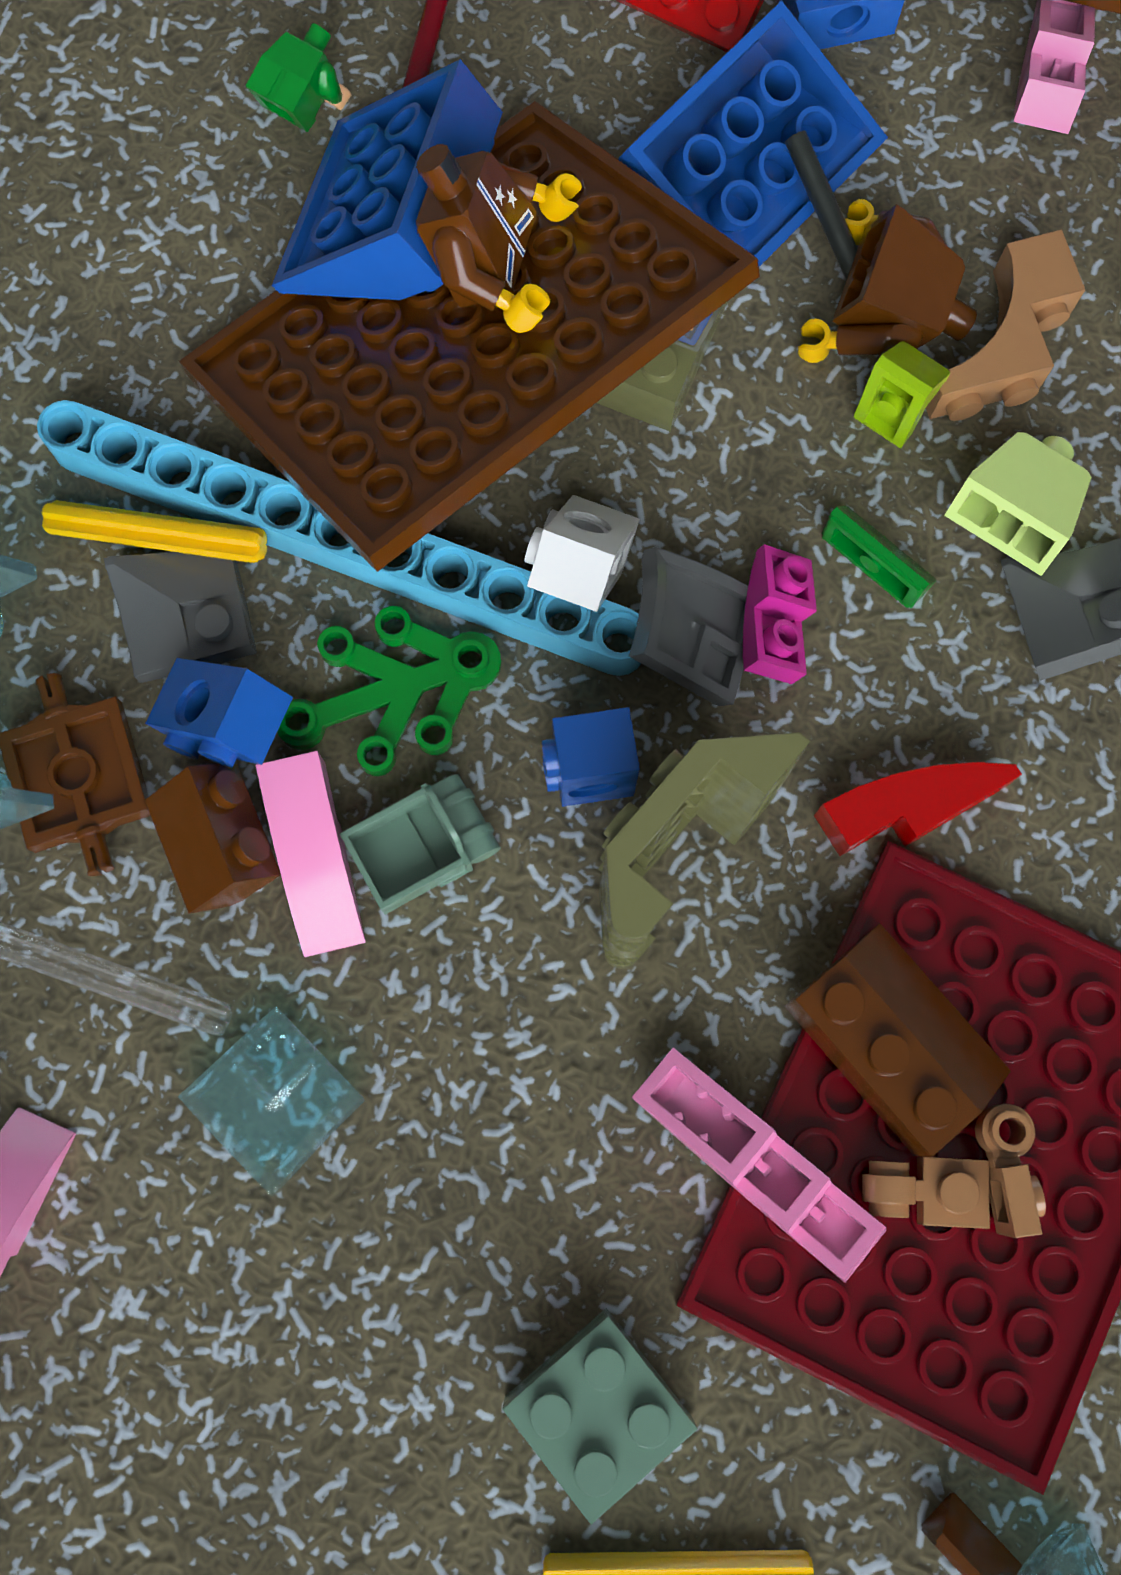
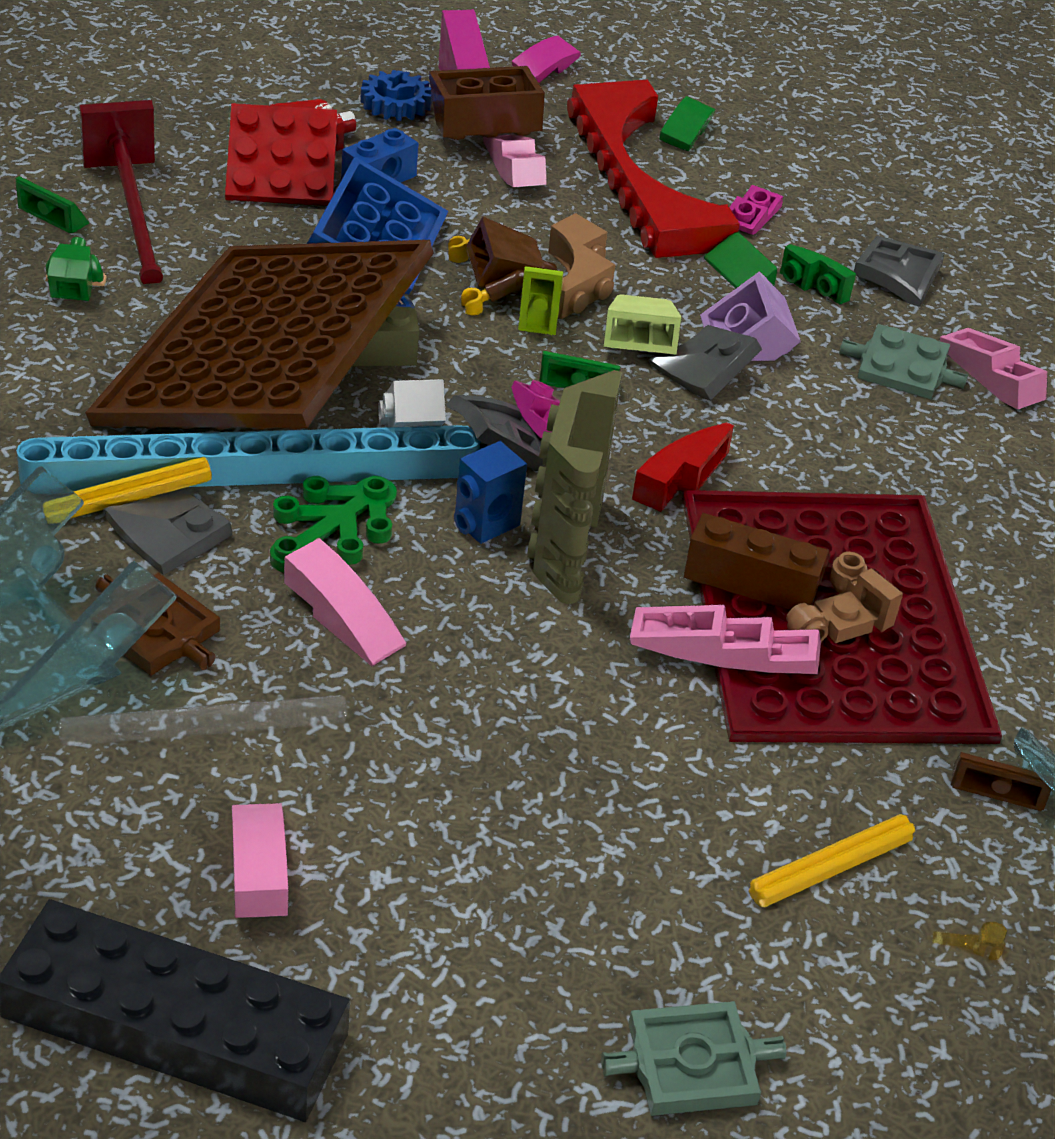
camera: 35 degrees left, 35 degrees down
(212, 836) = (276, 610): reddish brown brick -> none
(218, 712) = (239, 545): blue brick -> none
(272, 1100) = (407, 730): clear light blue plate -> none
(364, 203) = (177, 292): blue slope -> none
(420, 842) = (411, 575): sand green piece -> none
(480, 225) = (258, 272): reddish brown torso -> none
(598, 1415) = (725, 790): sand green brick -> none
(822, 200) = (438, 242): pearl dark grey bar -> none

